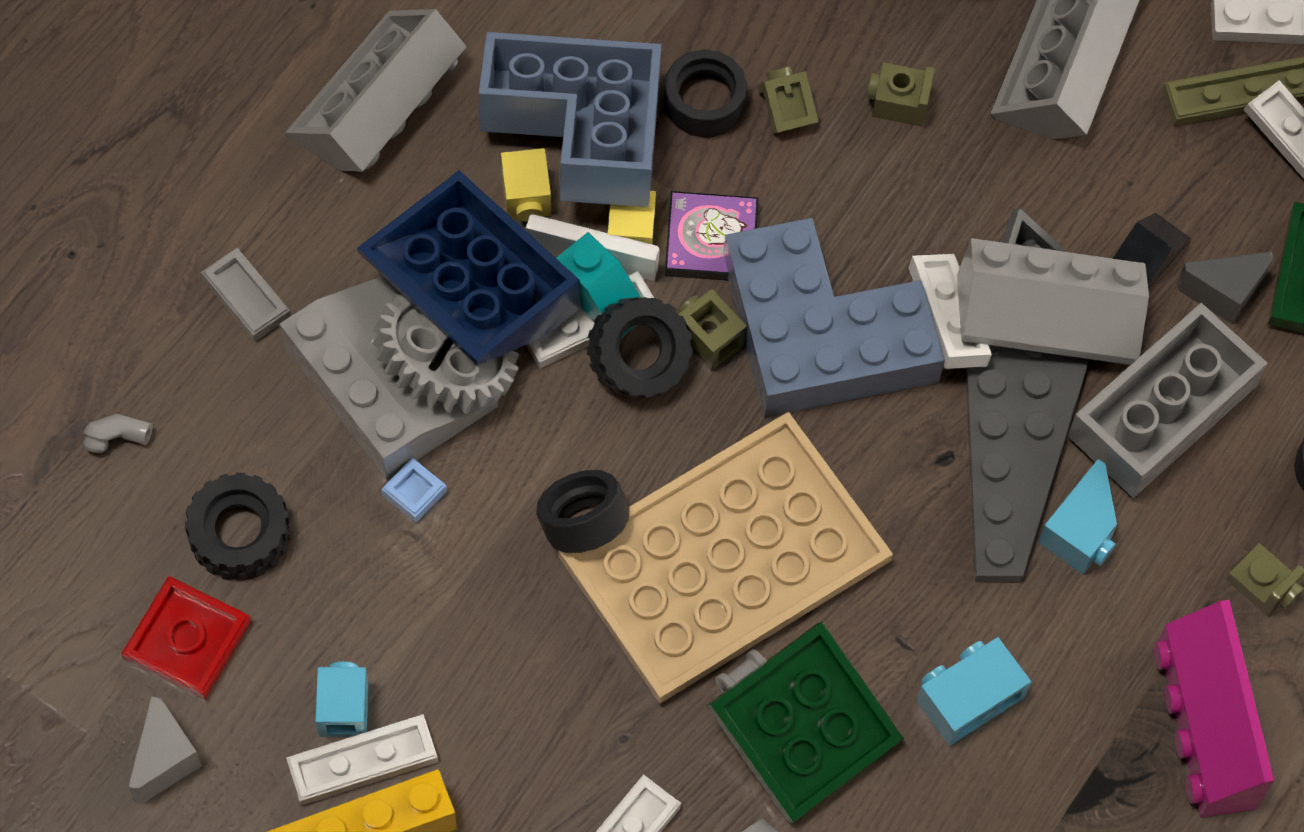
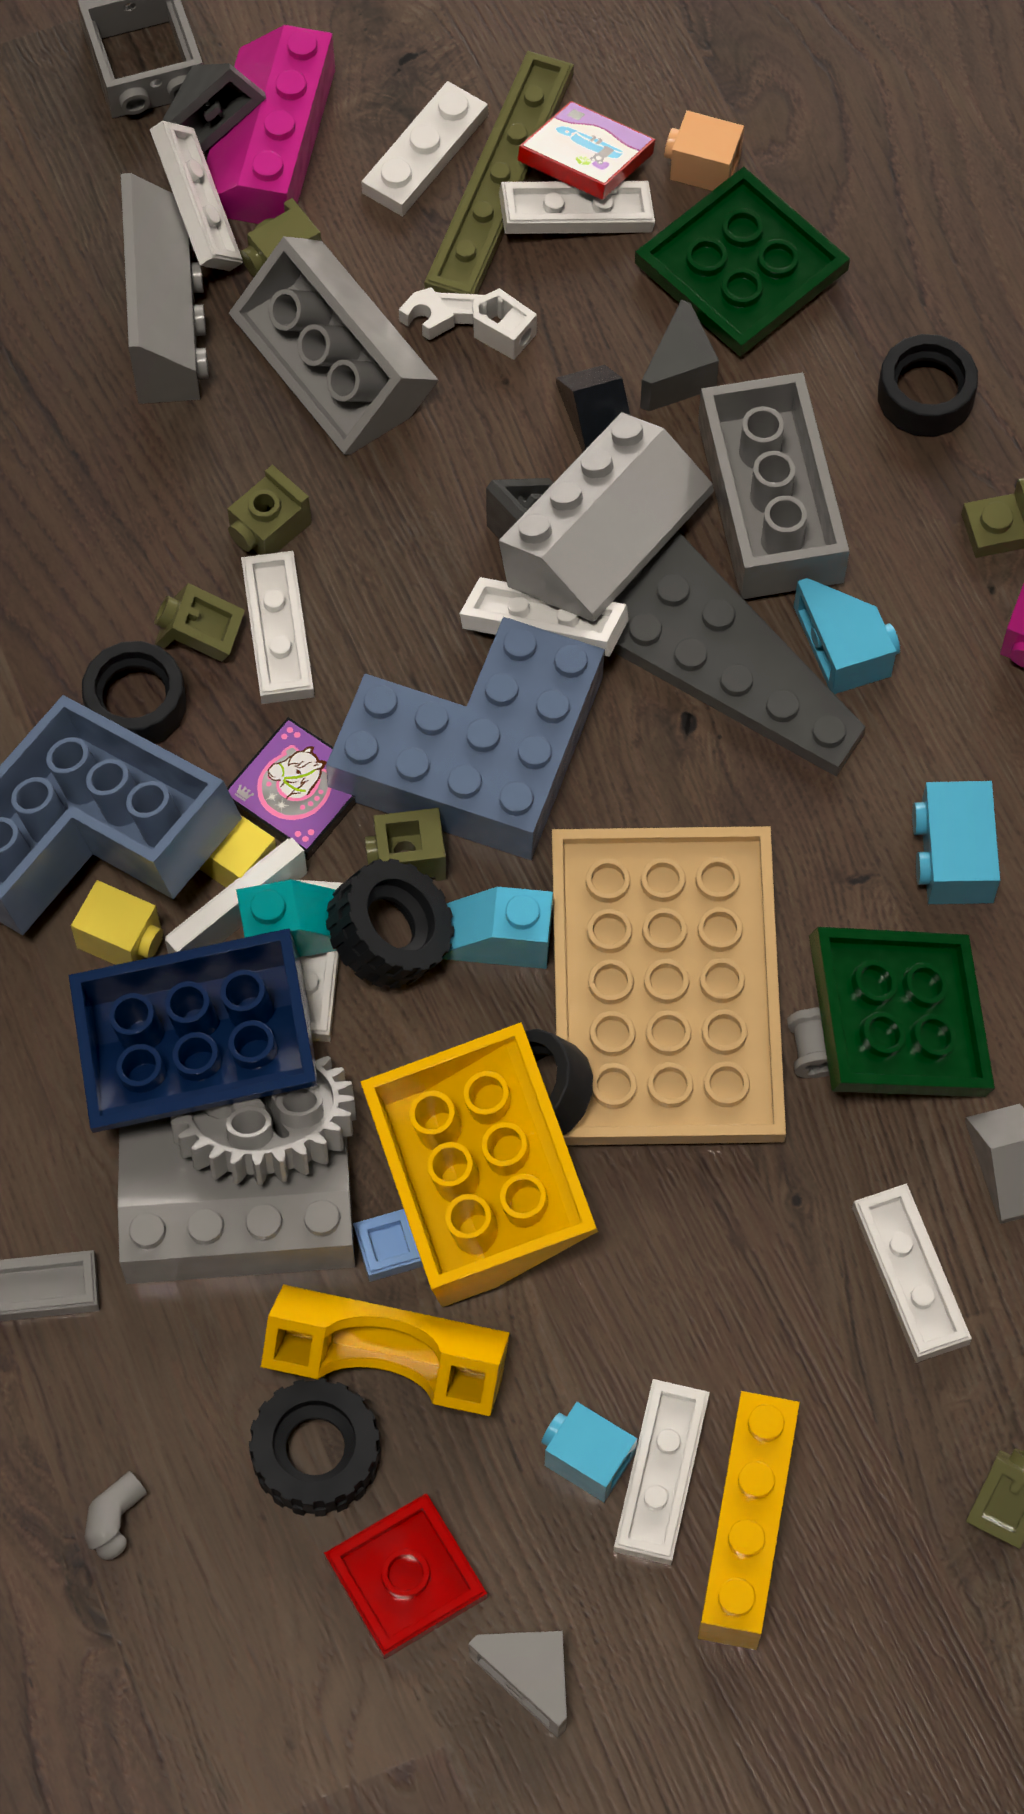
camera: 55 degrees left, 0 degrees up
(315, 479) = (324, 1332): none -> yellow arch
(492, 501) = (479, 1163): none -> yellow slope
(691, 423) = (502, 927): none -> medium azure slope
(824, 151) = (277, 627): none -> white tile
(1166, 162) = (445, 309): none -> white piece

